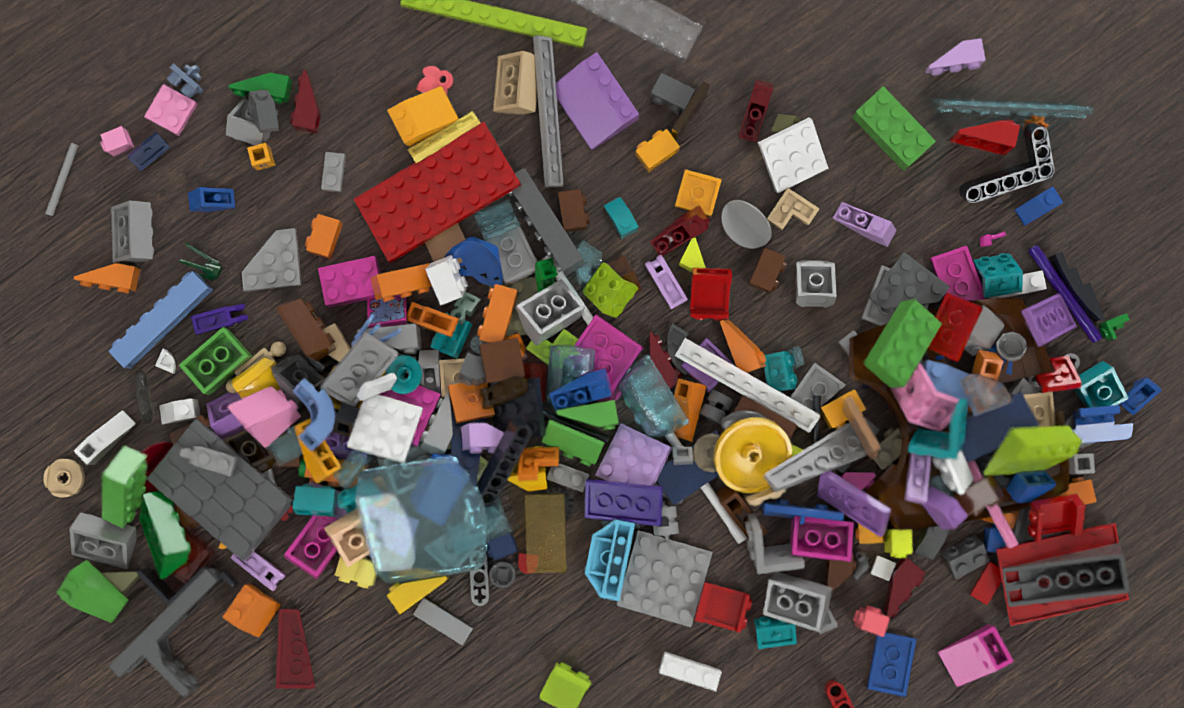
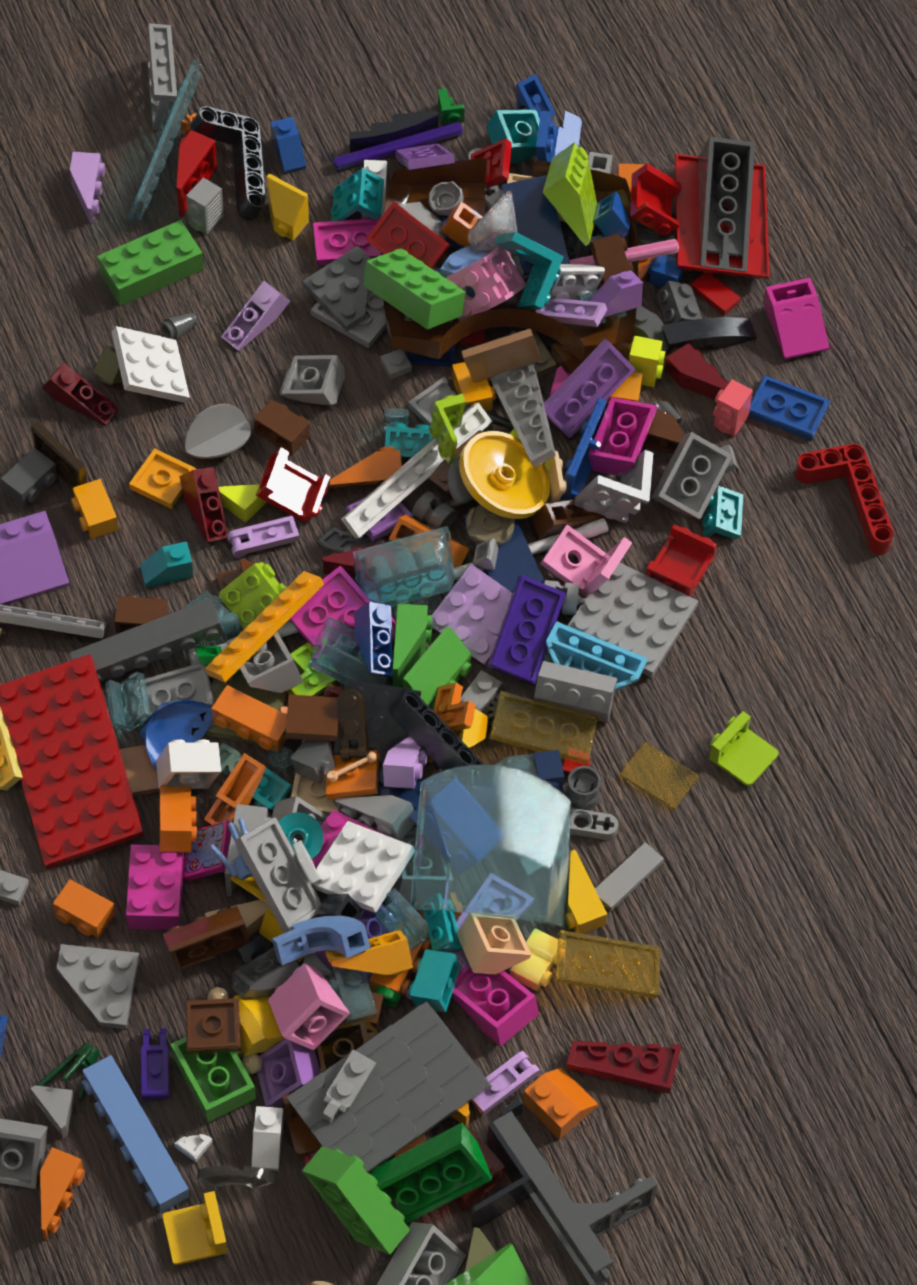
camera: 80 degrees left, 25 degrees down
(101, 380) = (195, 1231): none -> yellow bracket
(104, 438) = (279, 1240): white slope -> none
(169, 259) = (56, 1105): none -> light grey slope
(241, 352) = (212, 1026): none -> reddish brown tile
(363, 622) = (608, 964): none -> clear yellow tile
(462, 387) = (333, 775): none -> light nougat hinge
(534, 627) = (659, 775): none -> clear yellow piece
(574, 304) = (264, 626): none -> light orange plate
(578, 551) = (576, 690): none -> light grey slope
(689, 671) = (751, 611): white brick -> none
(698, 543) = (593, 564): none -> bright pink bracket
(790, 205) = (210, 384): tan plate -> none
(792, 398) = (446, 417): none -> lime bracket
(840, 166) = (178, 325): none -> dark grey cone
(882, 568) = (673, 391): white tile -> none
(943, 586) = (709, 331): none -> black slope
(955, 156) = (204, 206): none -> light grey brick
(971, 222) = (287, 207): none -> yellow slope
(987, 239) = (313, 205): dark pink hand -> none
(1078, 83) = (160, 71): none -> light grey fence

